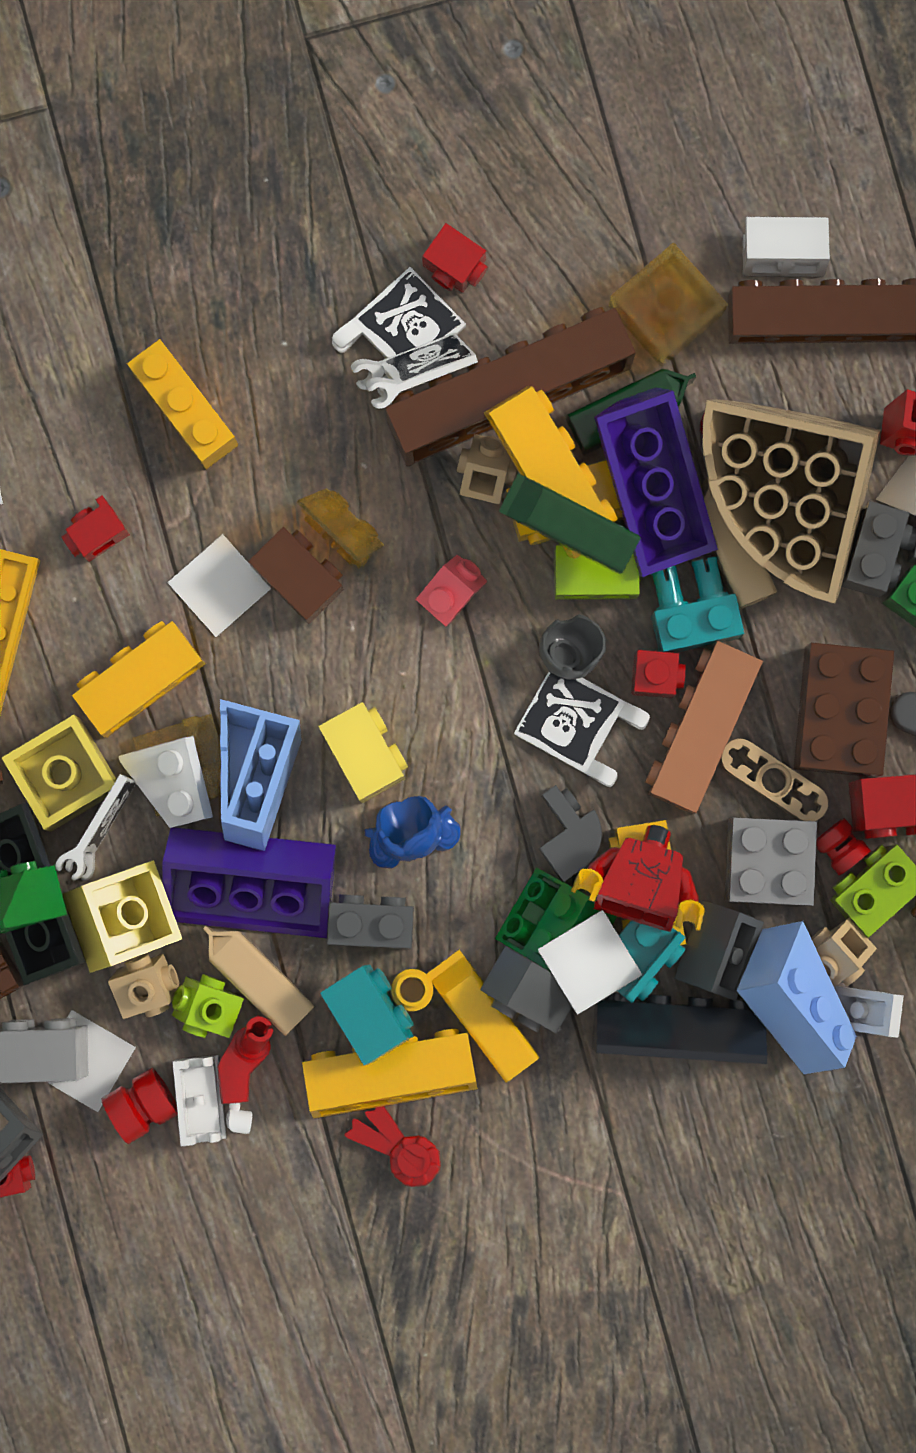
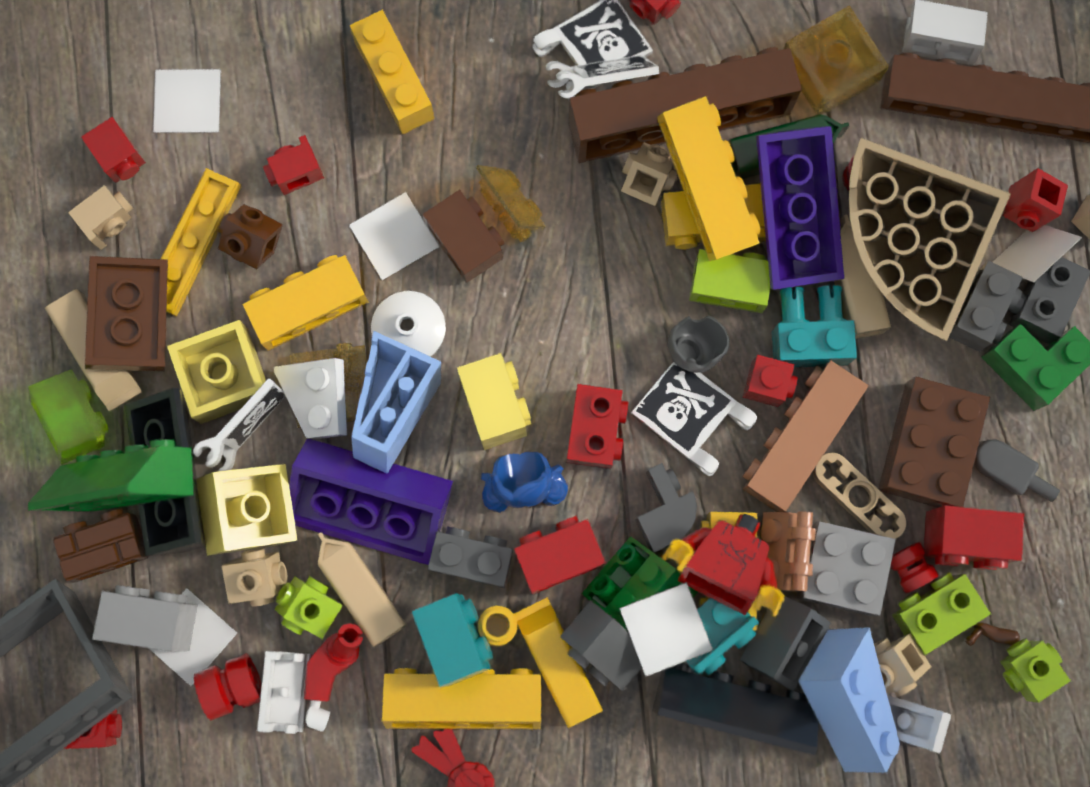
camera: 10 degrees right, 5 degrees down
(62, 617) = (249, 236): none -> reddish brown brick
(258, 660) = (427, 317): none -> white dish
(451, 589) = (598, 274): coral bracket -> none
(463, 905) = (559, 555): none -> red brick
(478, 757) = (595, 427): none -> red brick
(569, 524) = (718, 224): dark green piece -> none
(705, 851) = (789, 547): none -> nougat plate

